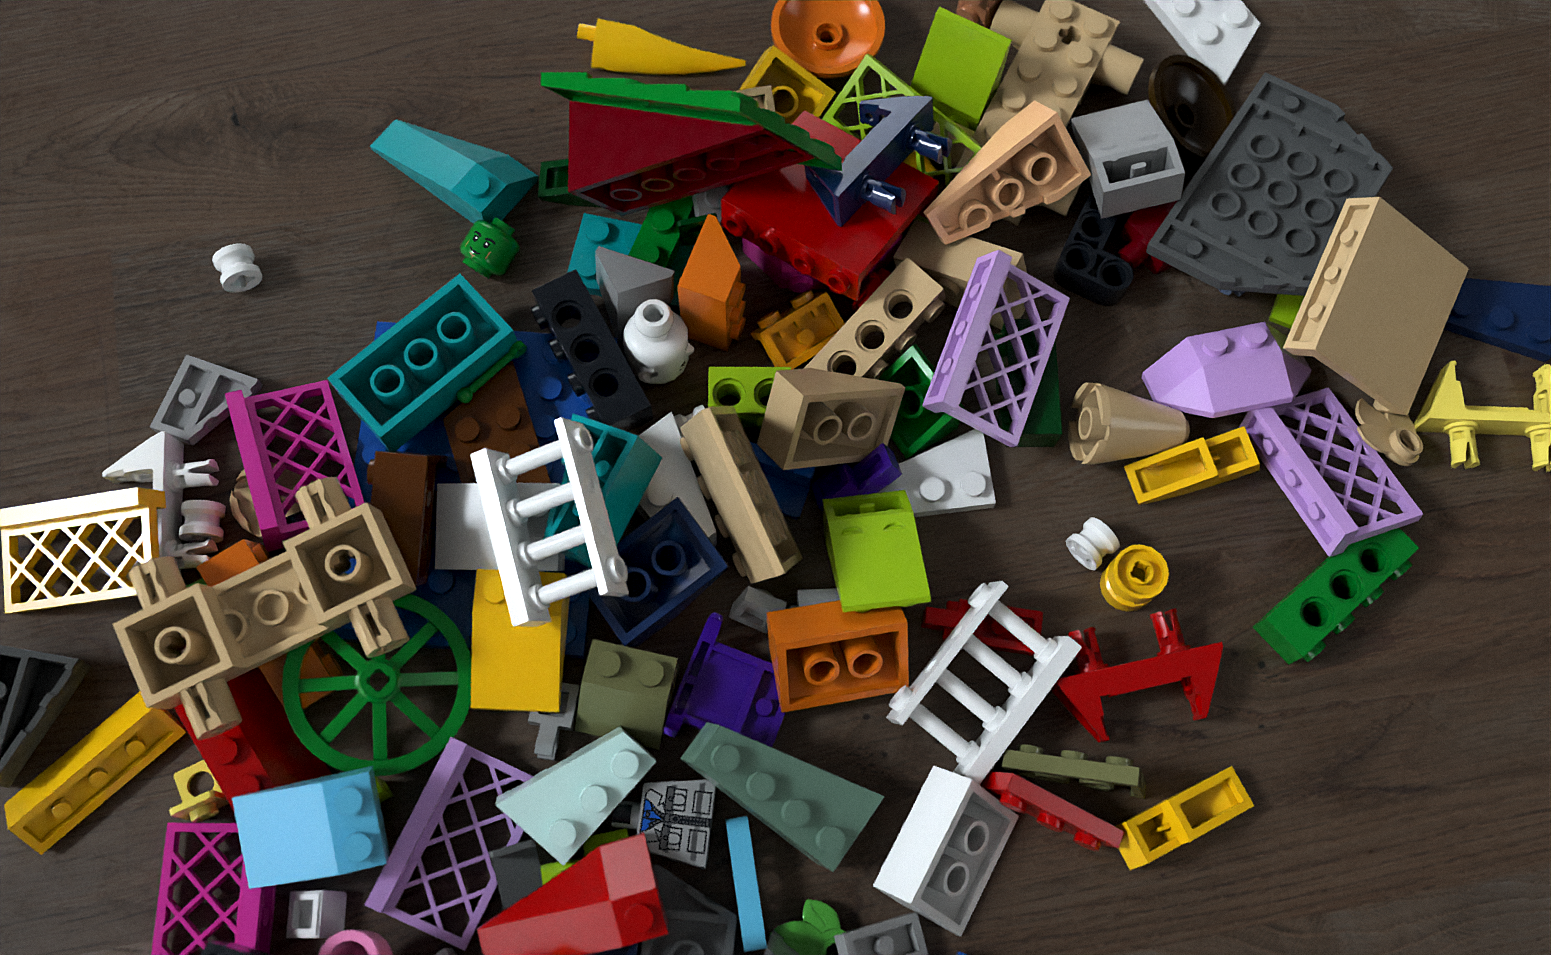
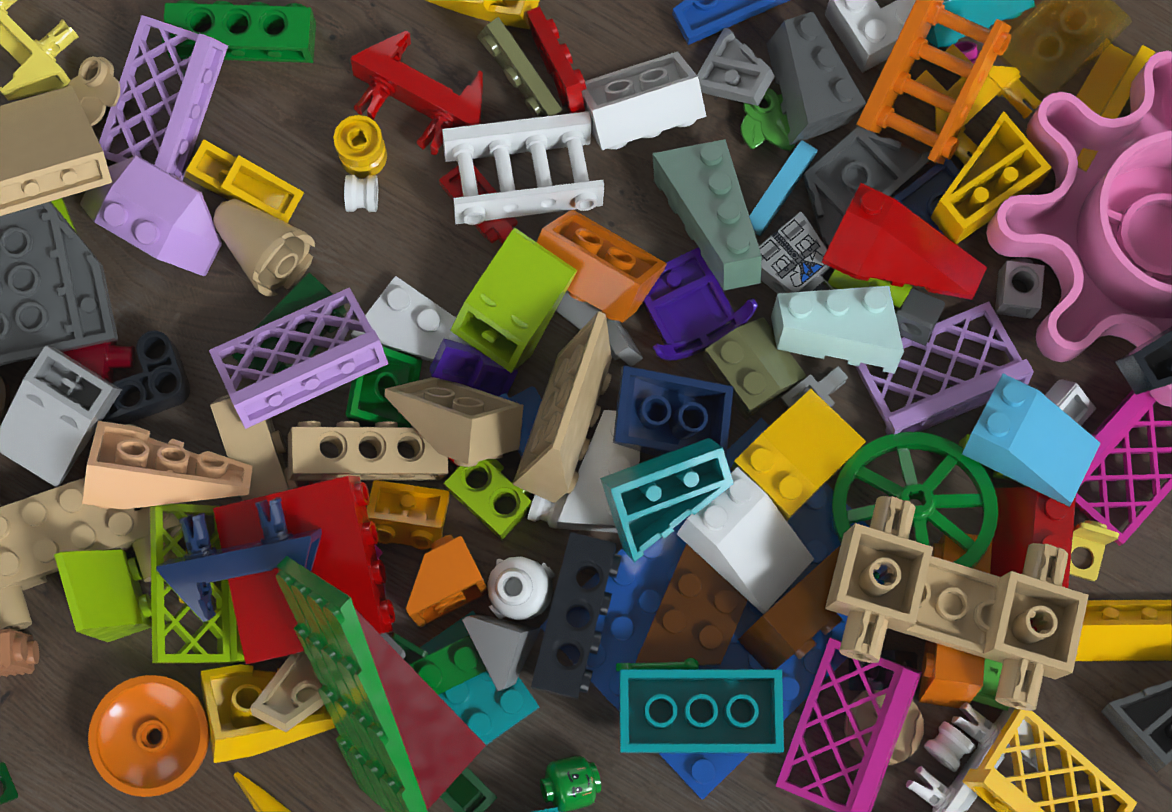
camera: 135 degrees left, 5 degrees up
(508, 516) = (760, 483): white fence -> none

